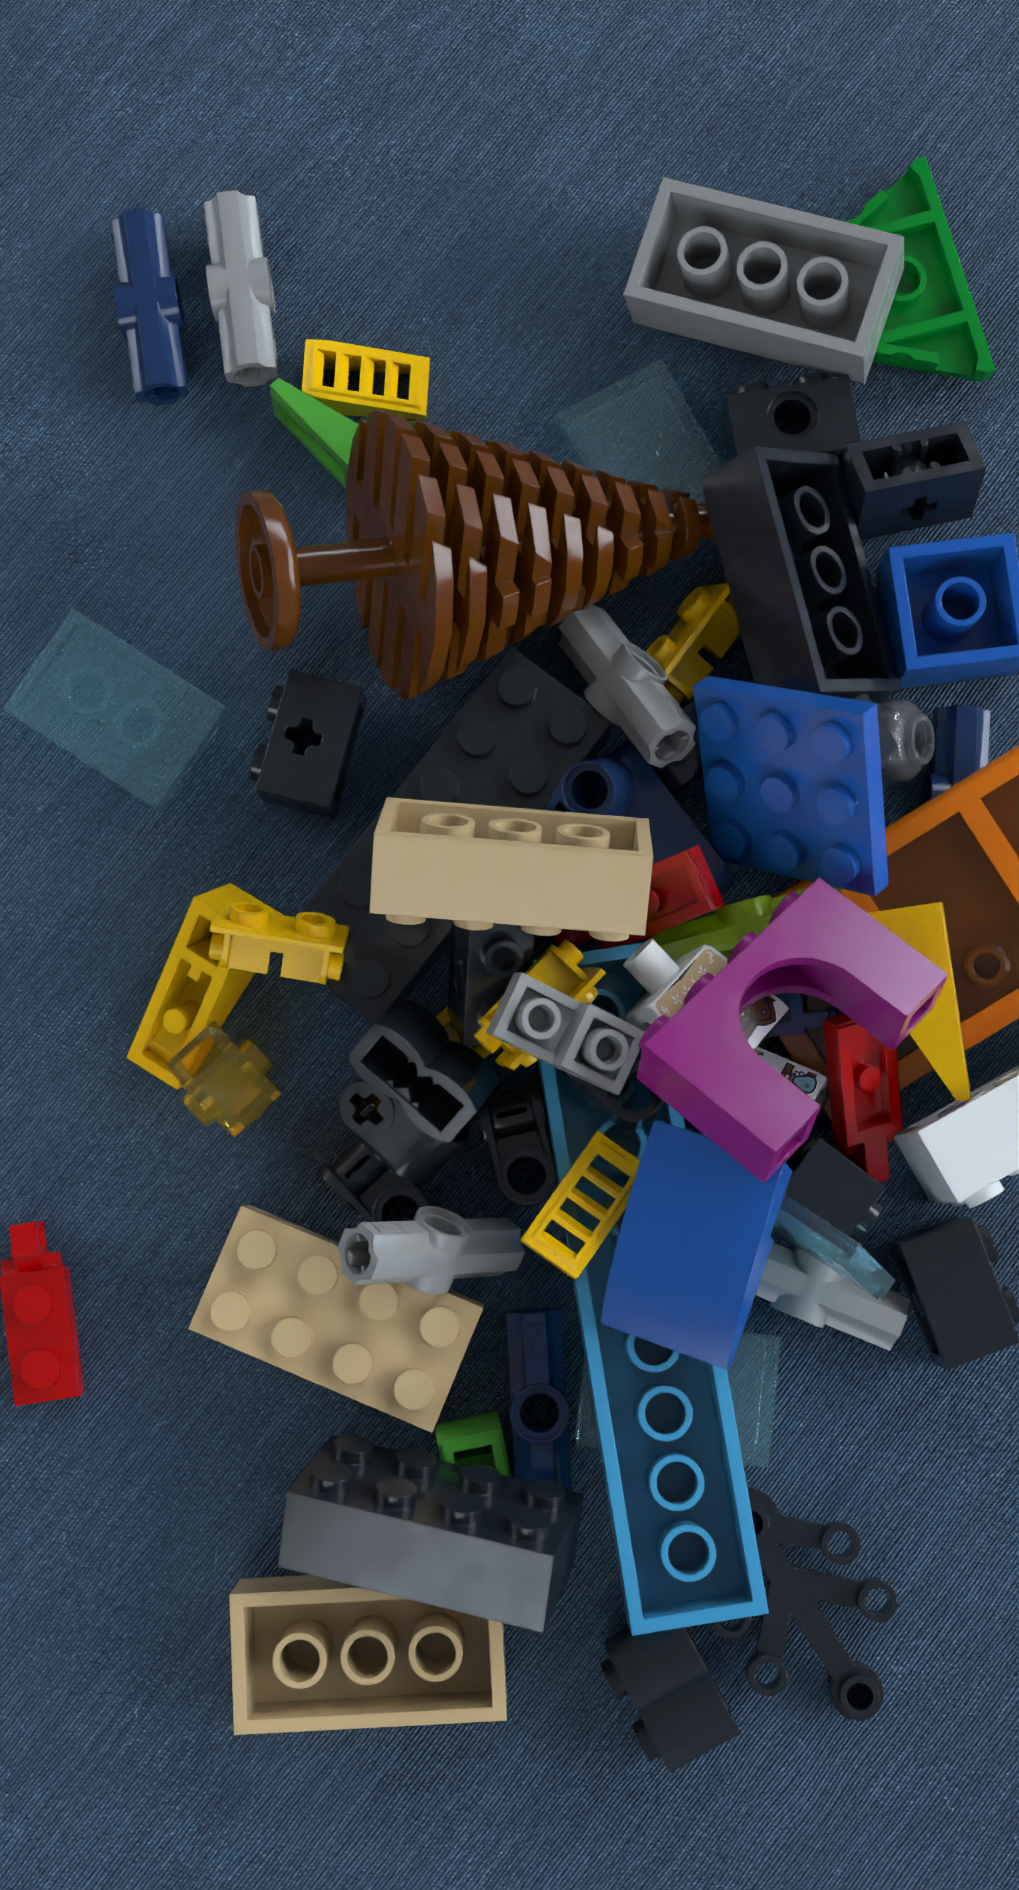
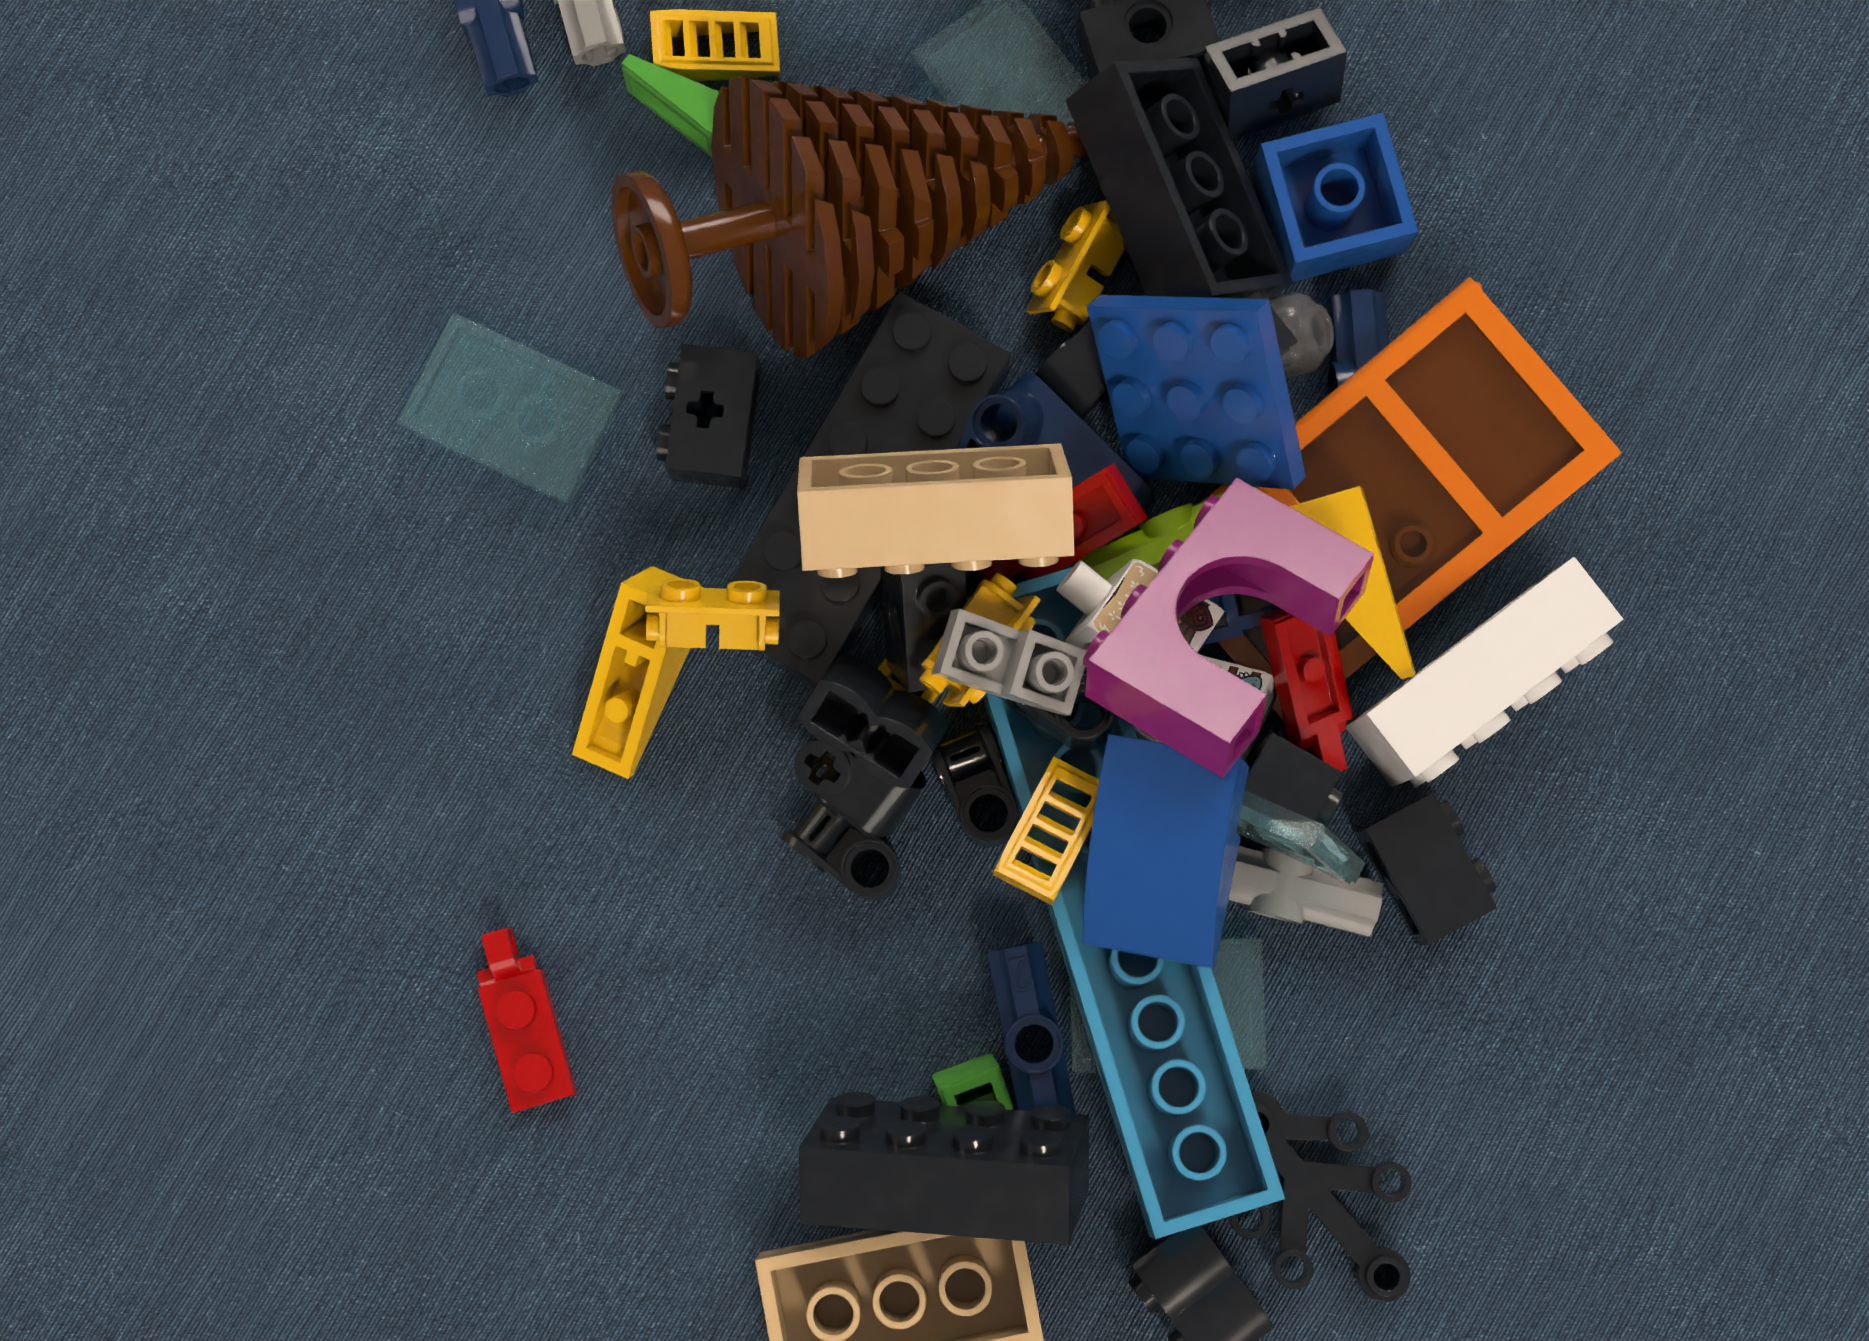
camera: 10 degrees left, 0 degrees up
(224, 1079) = (675, 760): clear yellow brick -> none
(291, 1306) = (820, 978): tan brick -> none
(430, 1250) = (905, 897): light grey piece -> none
(627, 686) = (1020, 316): light grey piece -> none

